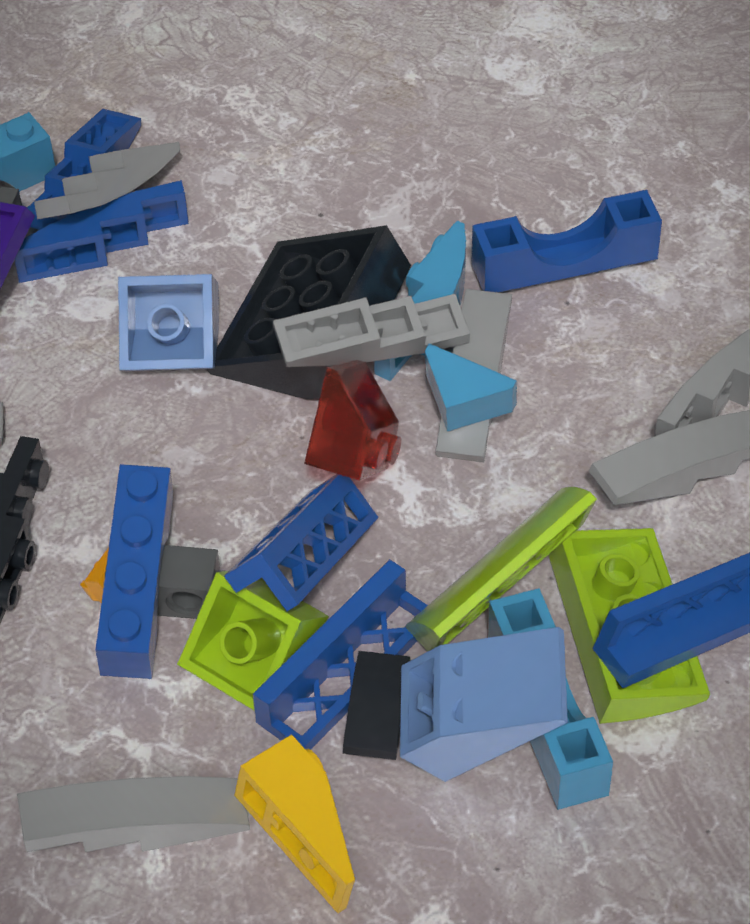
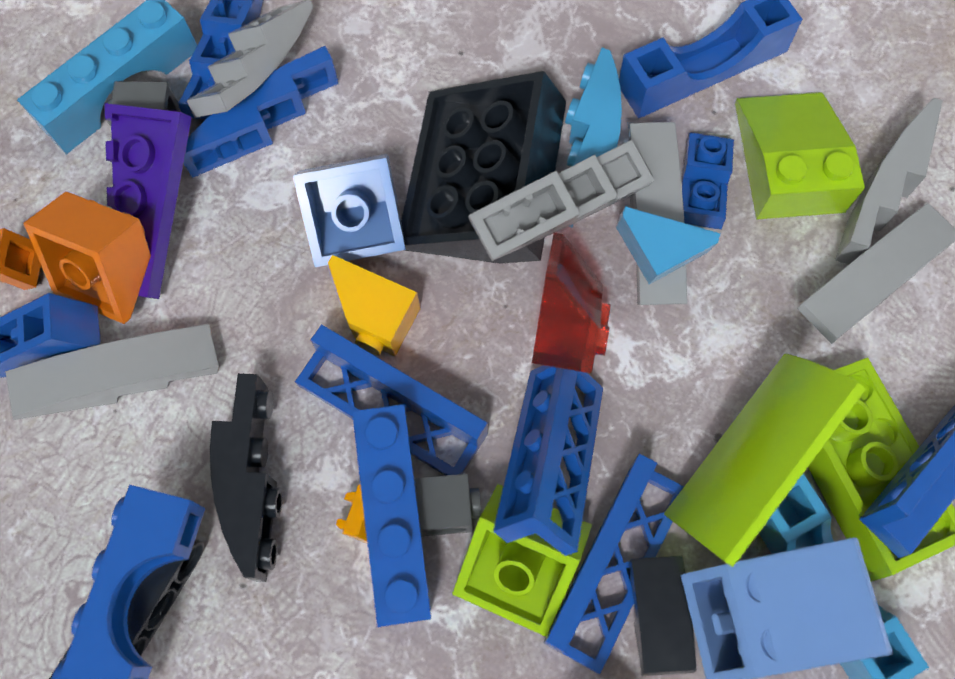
camera: 10 degrees left, 20 degrees up
(170, 410) = (374, 307): none -> yellow slope
(192, 493) = (399, 387): none -> blue fence
(538, 355) = (706, 179): none -> blue slope
(634, 350) = (797, 156): none -> lime slope

